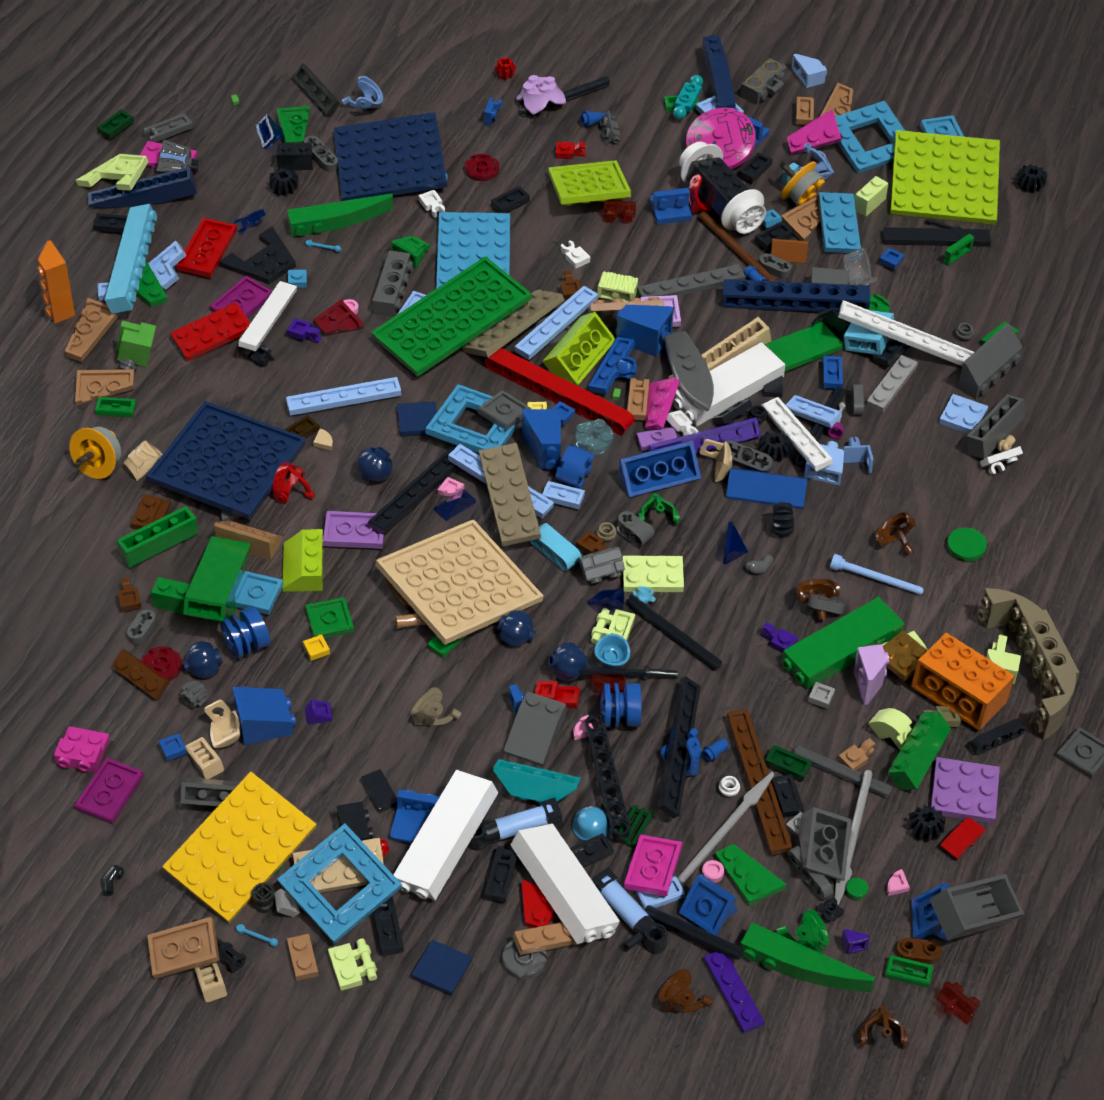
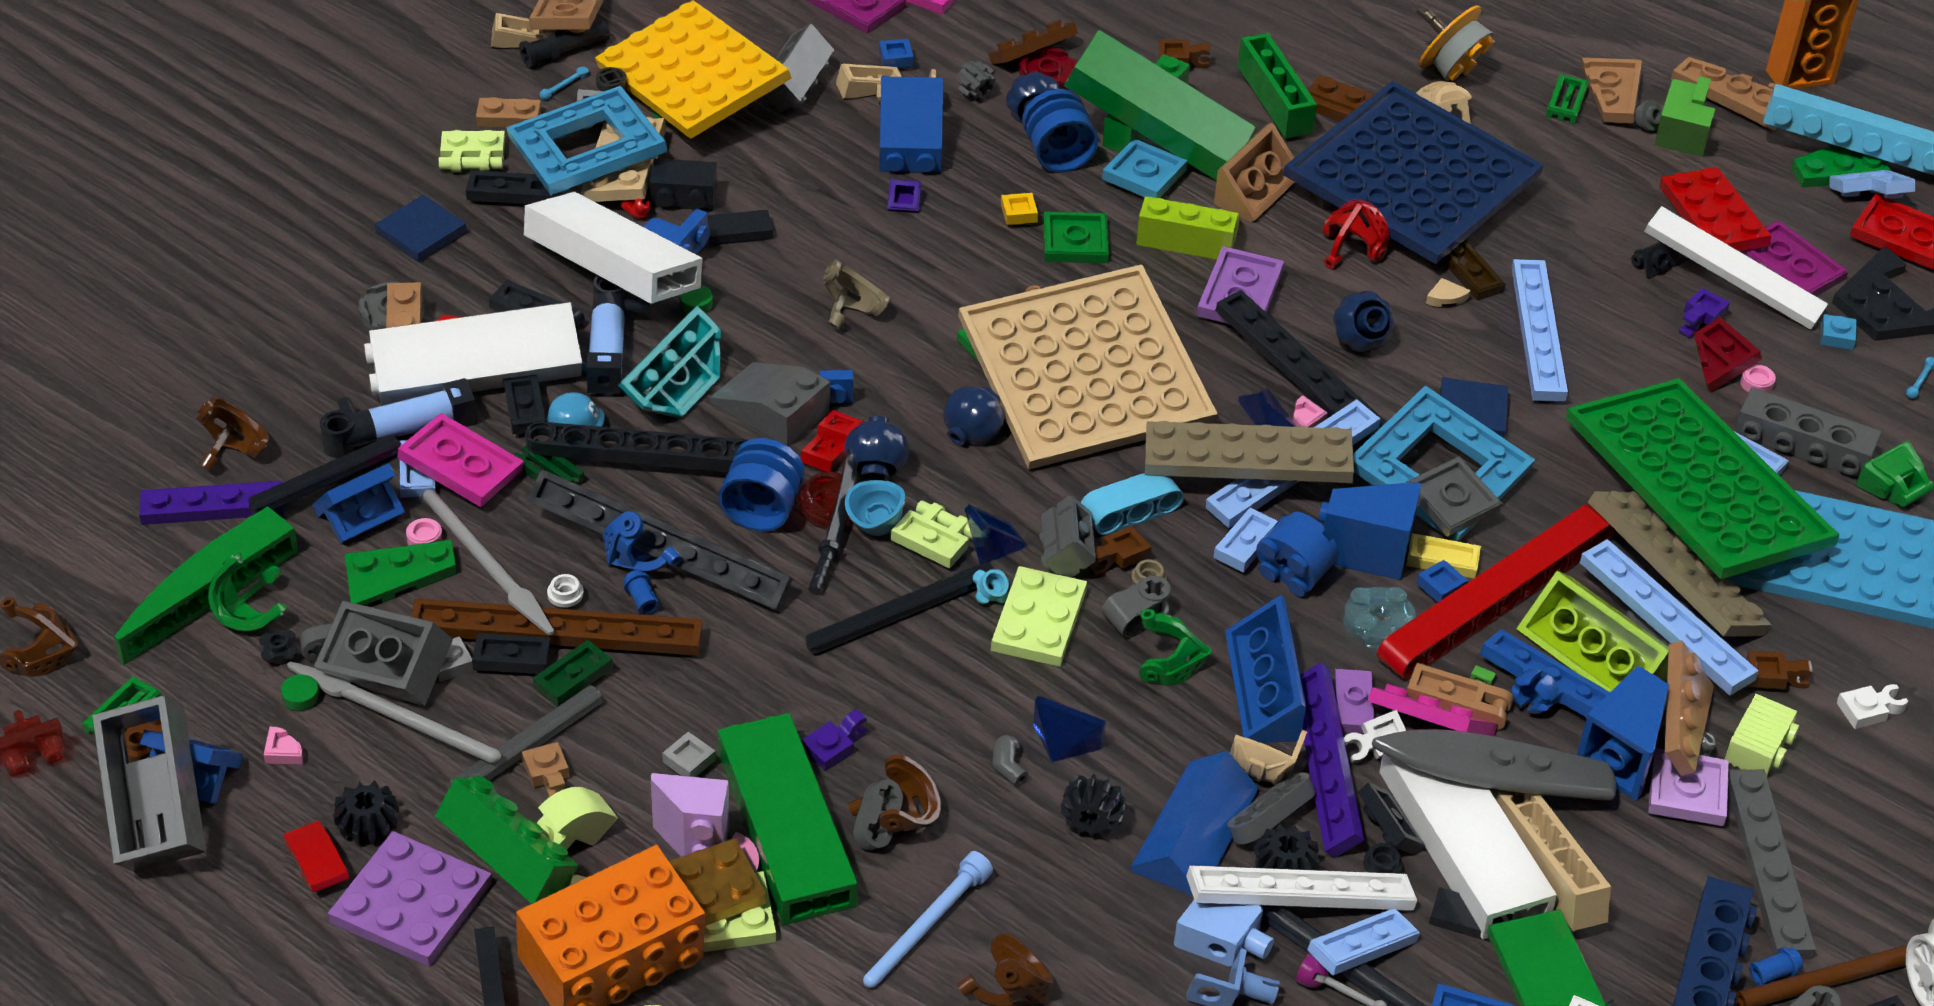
camera: 105 degrees right, 5 degrees down
(854, 941) = (206, 650): dark purple slope -> none

